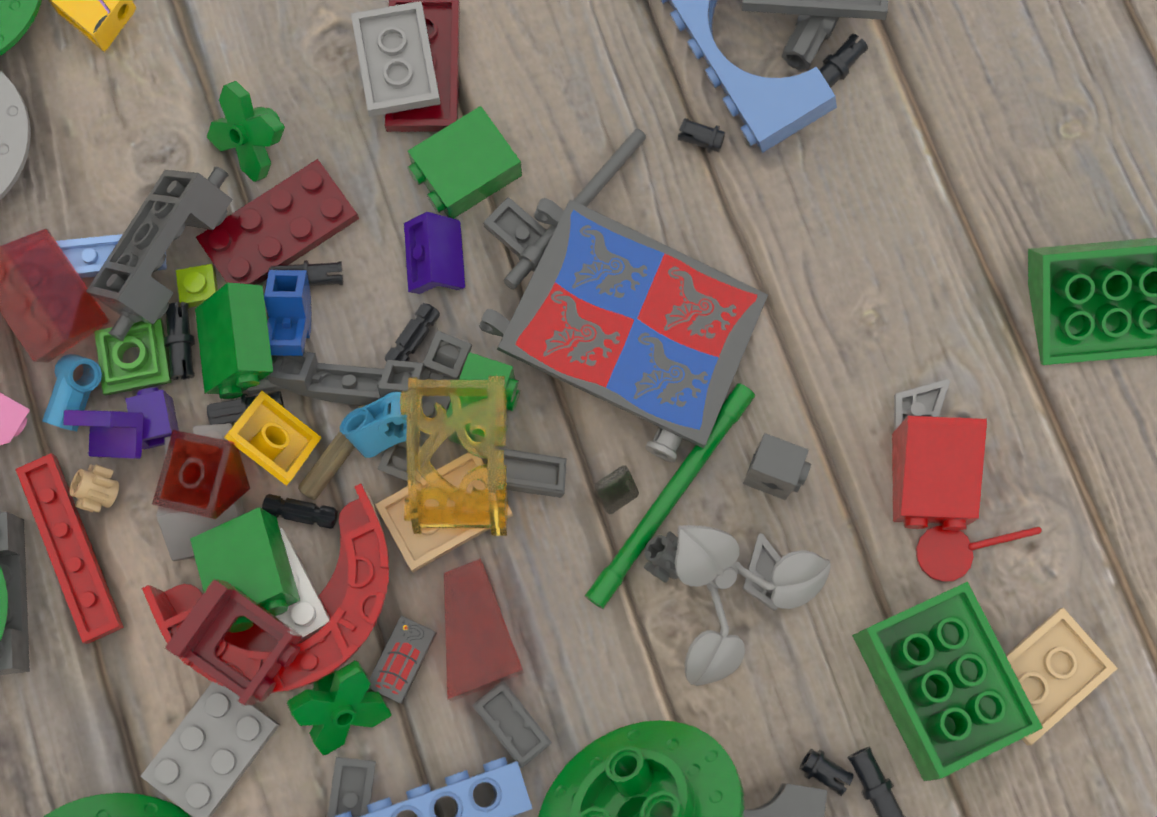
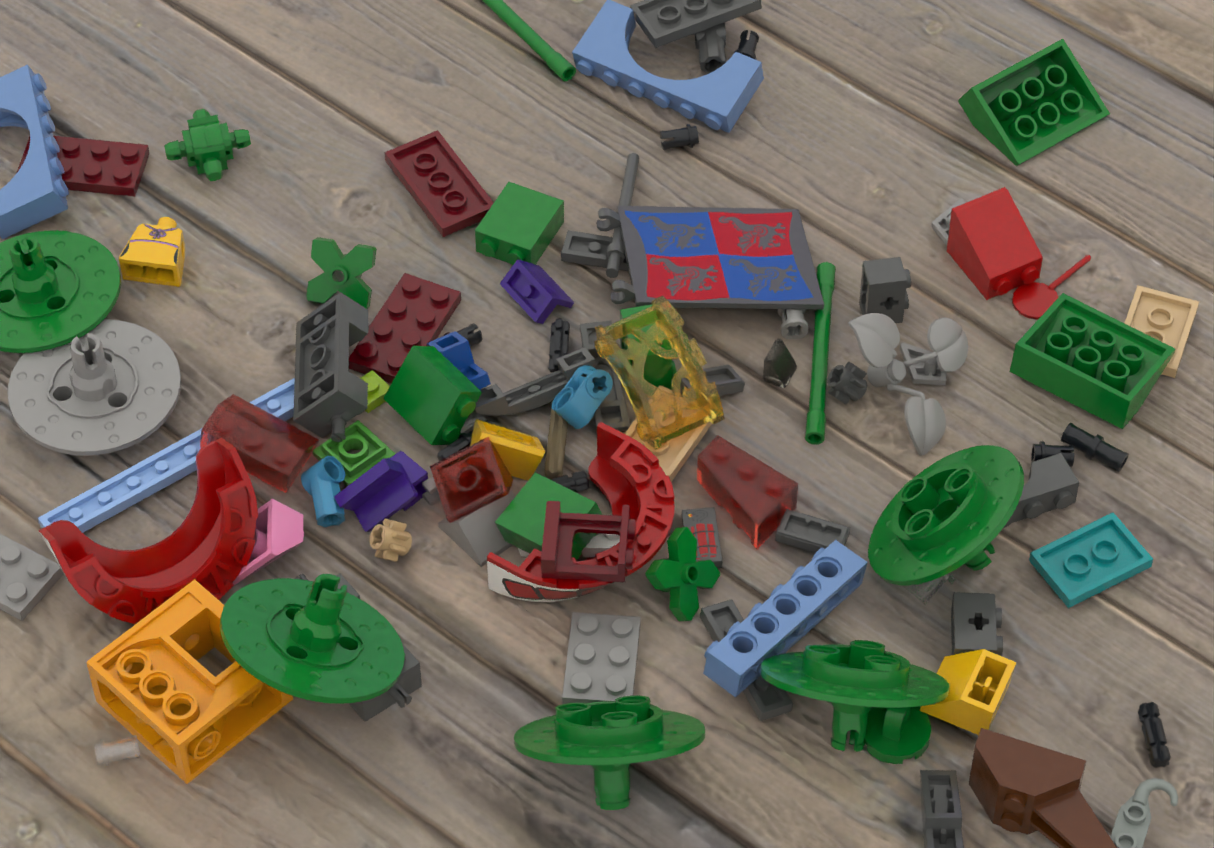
camera: 30 degrees left, 25 degrees down
(69, 549) = (398, 589): red plate -> none
(179, 341) = (385, 427): black pin -> none
(395, 59) = (423, 181): light grey plate -> none

